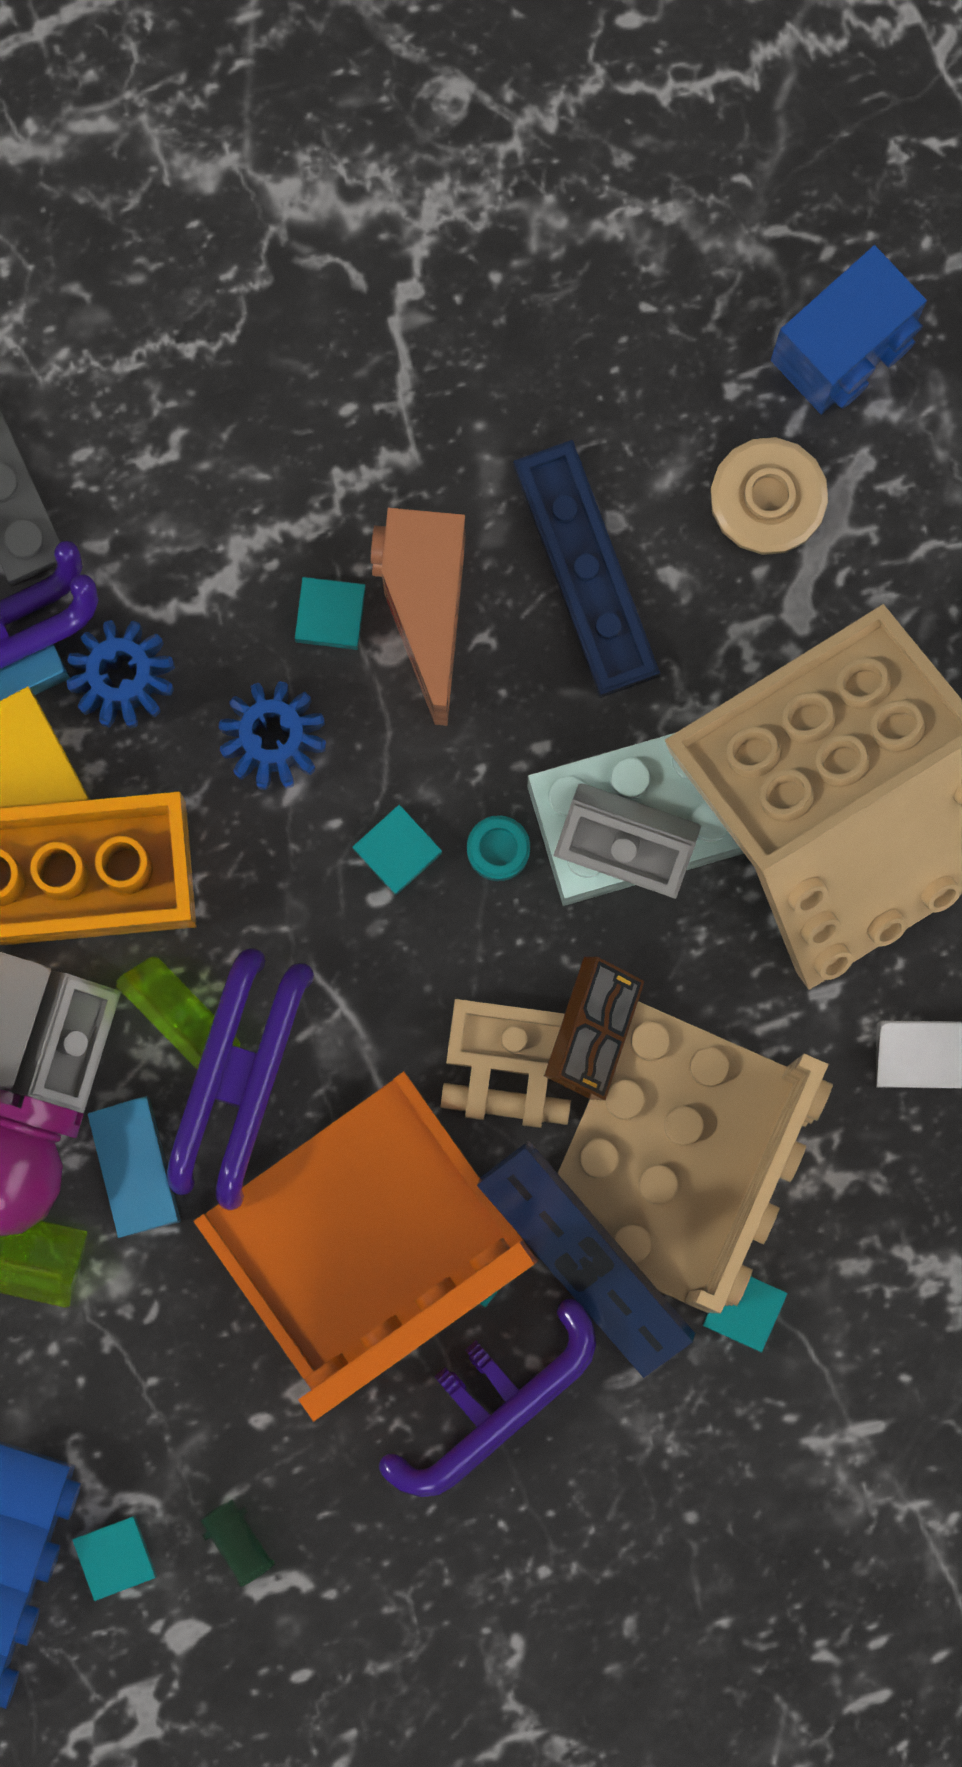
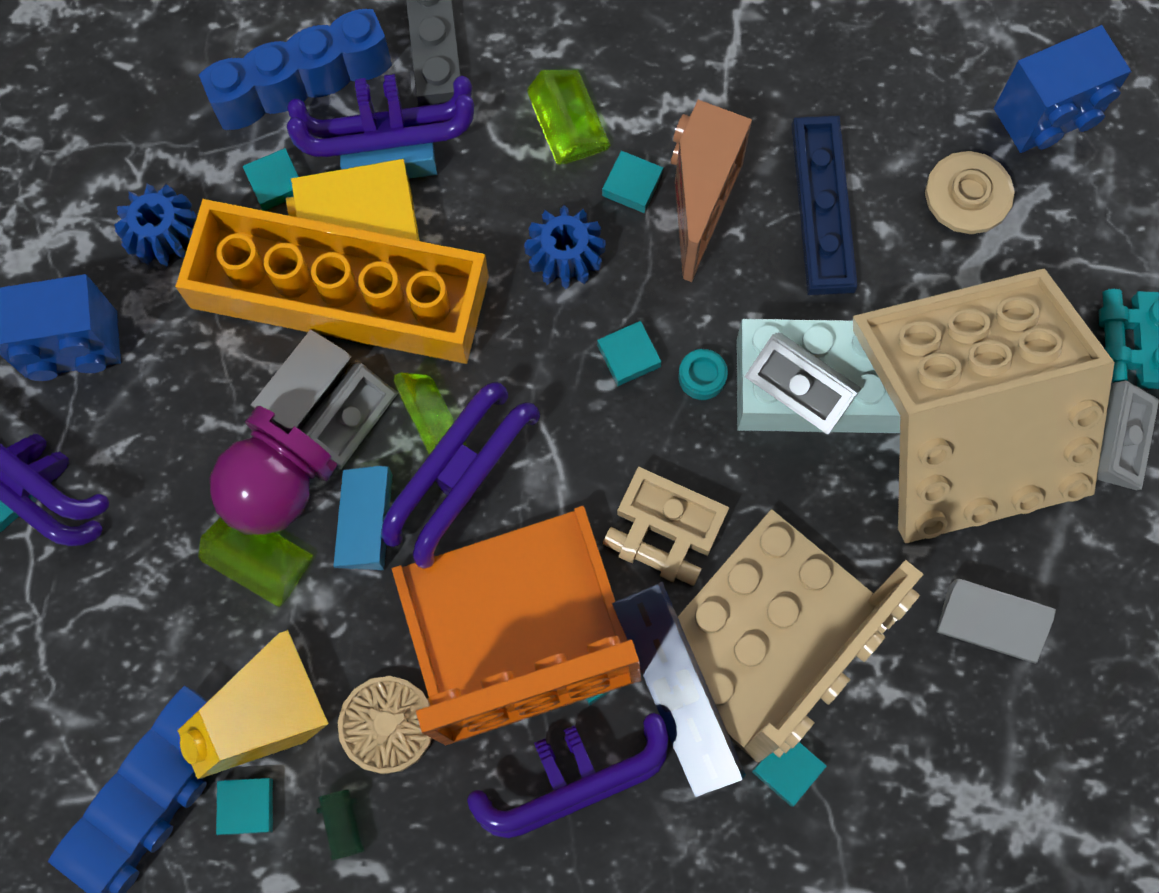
camera: 20 degrees right, 10 degrees down
(91, 1445) = (255, 713): none -> yellow slope
(130, 693) = (470, 162): blue gear -> none
(215, 543) = (567, 115): none -> clear neon green slope
(249, 1409) = (382, 726): none -> tan wheel
(594, 1028) = (736, 518): tile -> none

